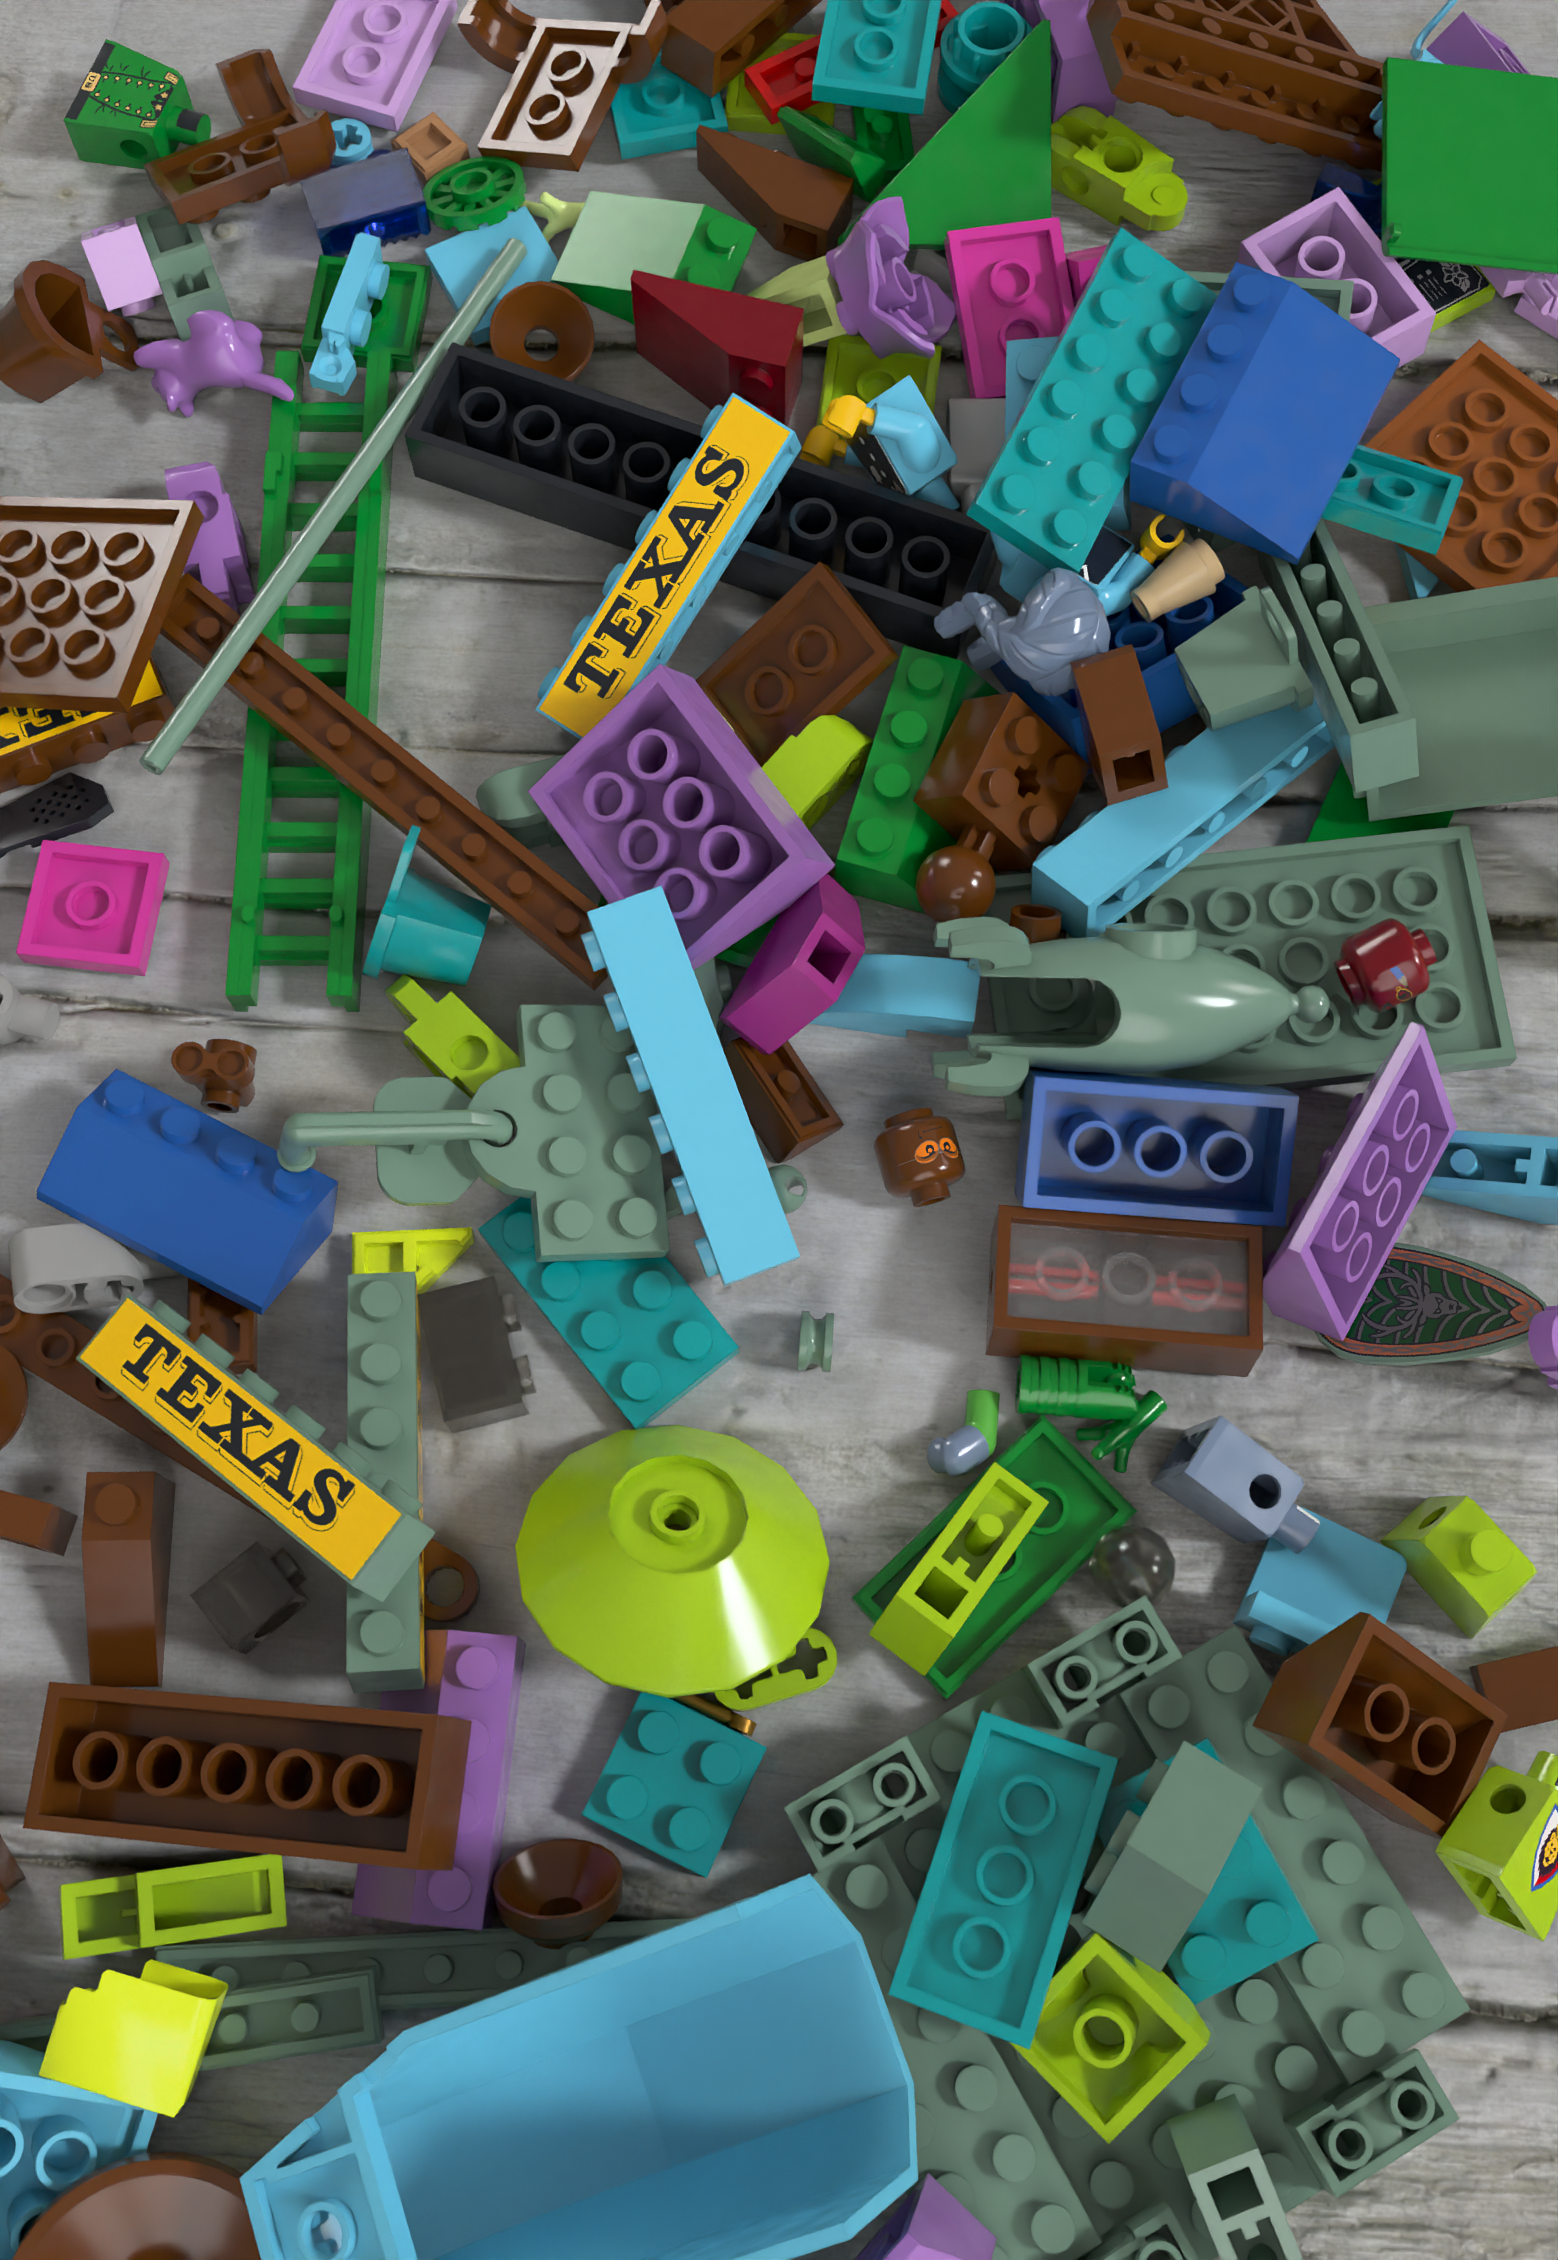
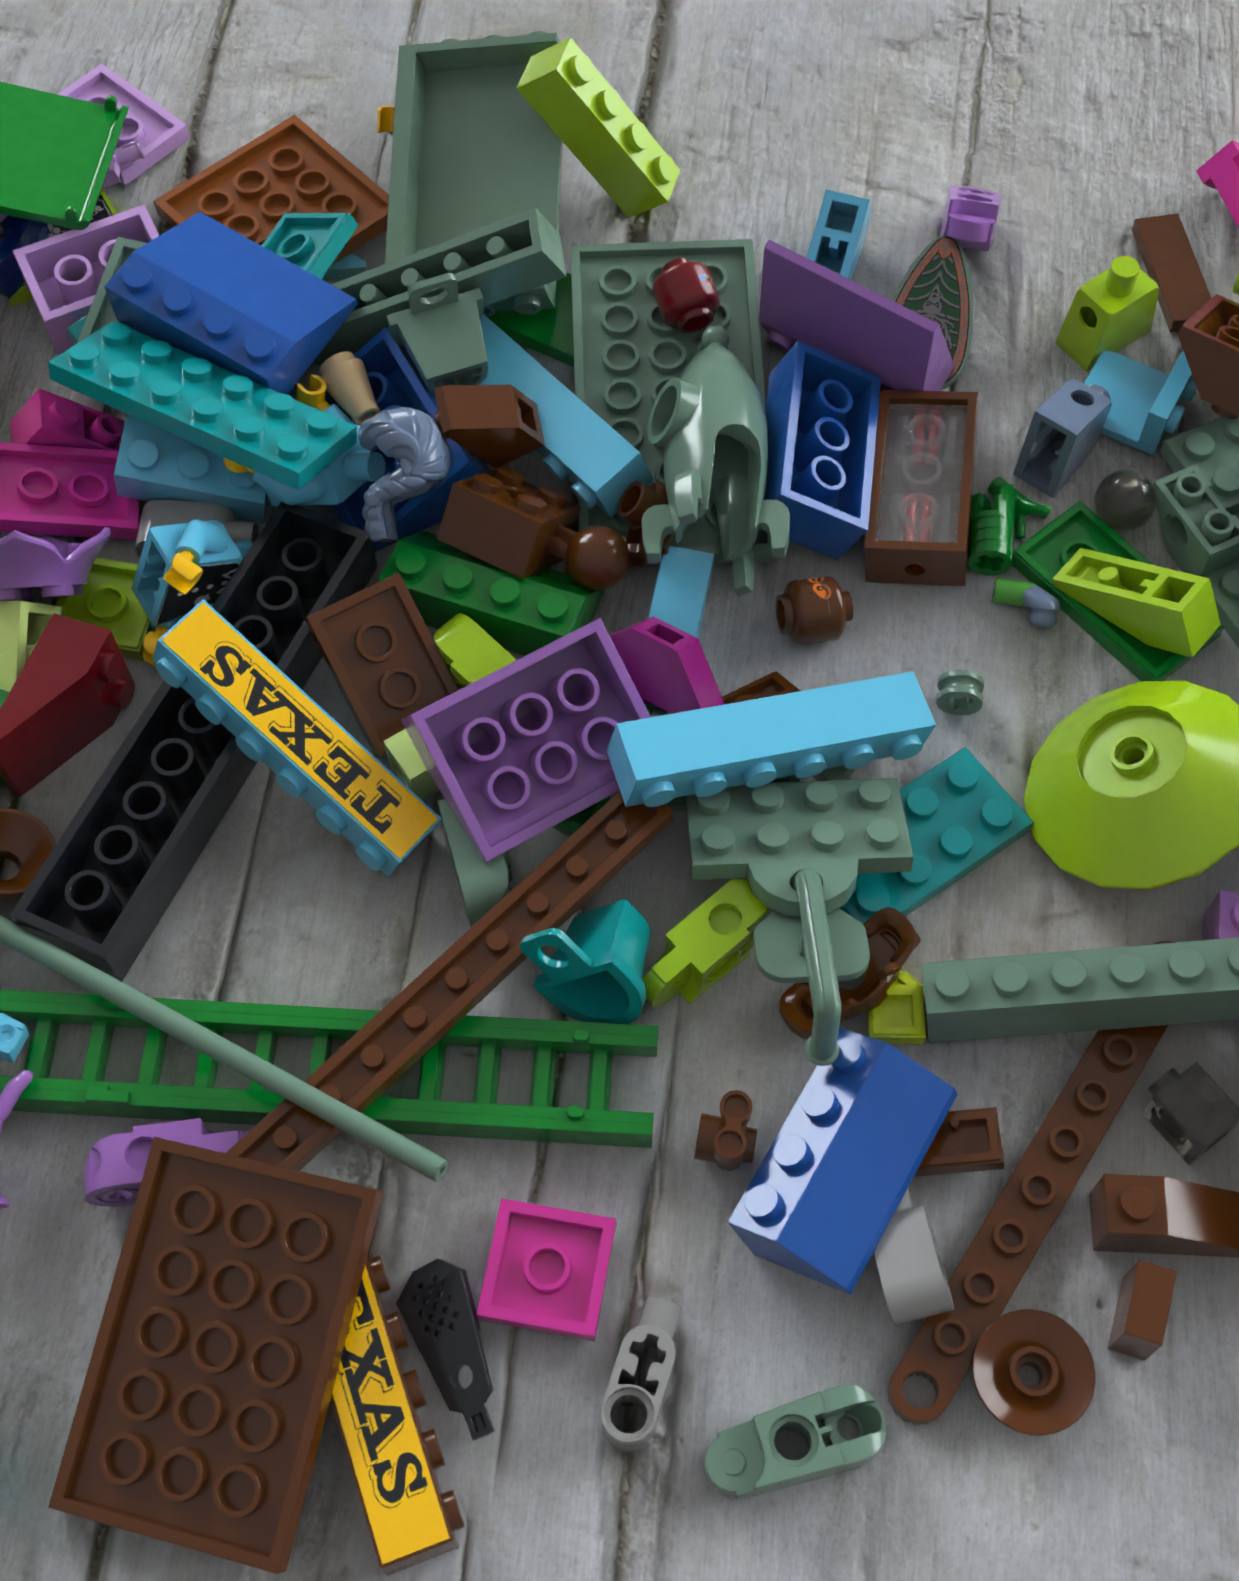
camera: 85 degrees left, 10 degrees down
(258, 1449) = (1092, 1067): brick -> none
(453, 1242) = (890, 944): none -> reddish brown piece
(475, 1354) = (979, 927): clear smoke brick -> none

